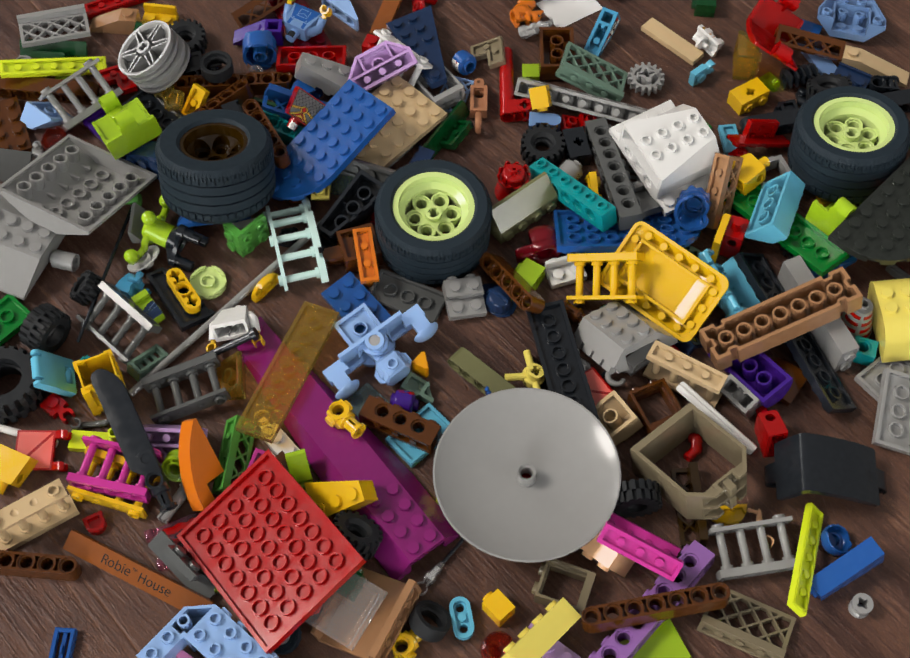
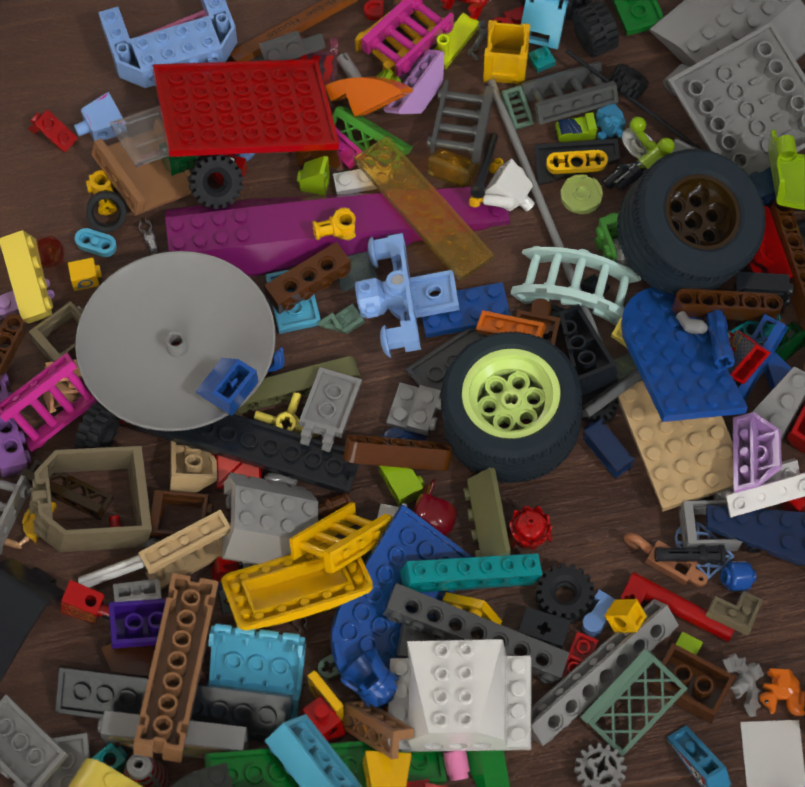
camera: 120 degrees right, 5 degrees up
(131, 435) = (422, 47): black piece -> none
(264, 286) = (542, 235): yellow tile -> none
(292, 127) = (722, 351): none -> blue axle
(298, 144) = (691, 326): none -> light grey arm
(341, 495) = (263, 187): yellow wedge -> none
(405, 399) = (333, 298): dark purple head -> none
(420, 365) = (363, 333): light orange slope -> none
(451, 130) = (641, 508): dark green bracket -> none
(472, 90) = (700, 554): none -> black pin
(506, 344) = (328, 406): none -> light grey tile
(546, 400) = (228, 384): none -> blue slope
(572, 168) = (512, 601): light grey head -> none

